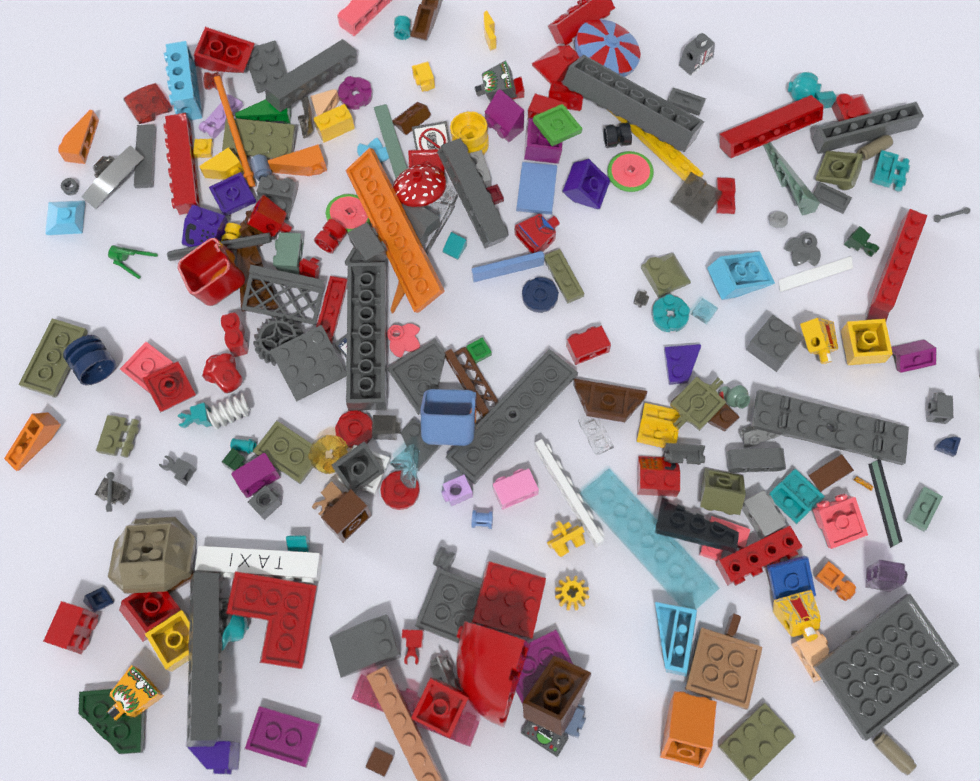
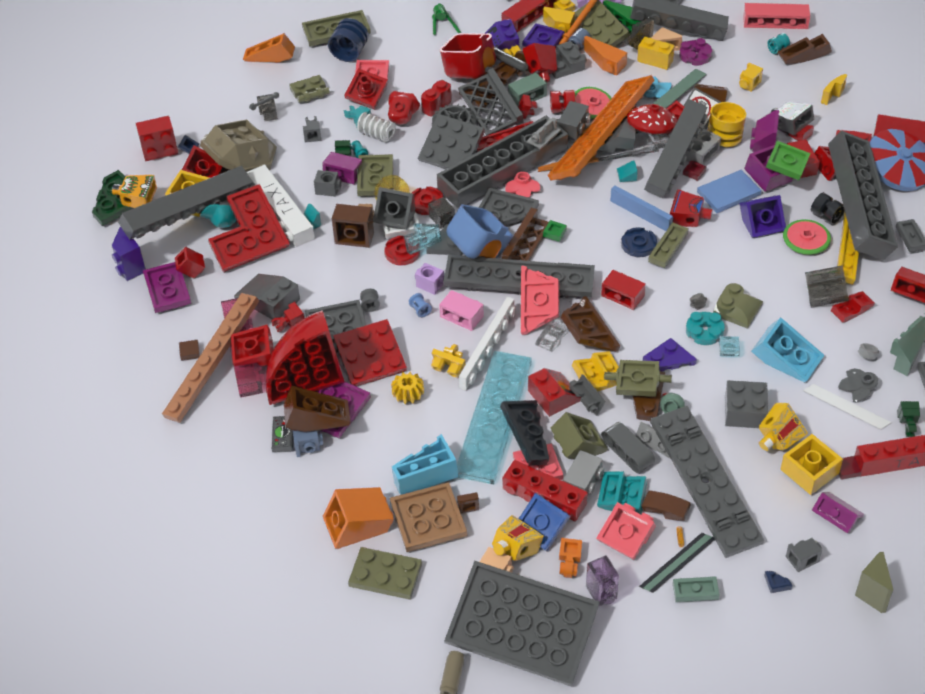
camera: 55 degrees right, 20 degrees down
(272, 697) = (189, 262): none -> red brick
(374, 282) = (544, 134): none -> light grey hinge
(555, 419) = (538, 299): none -> coral wing

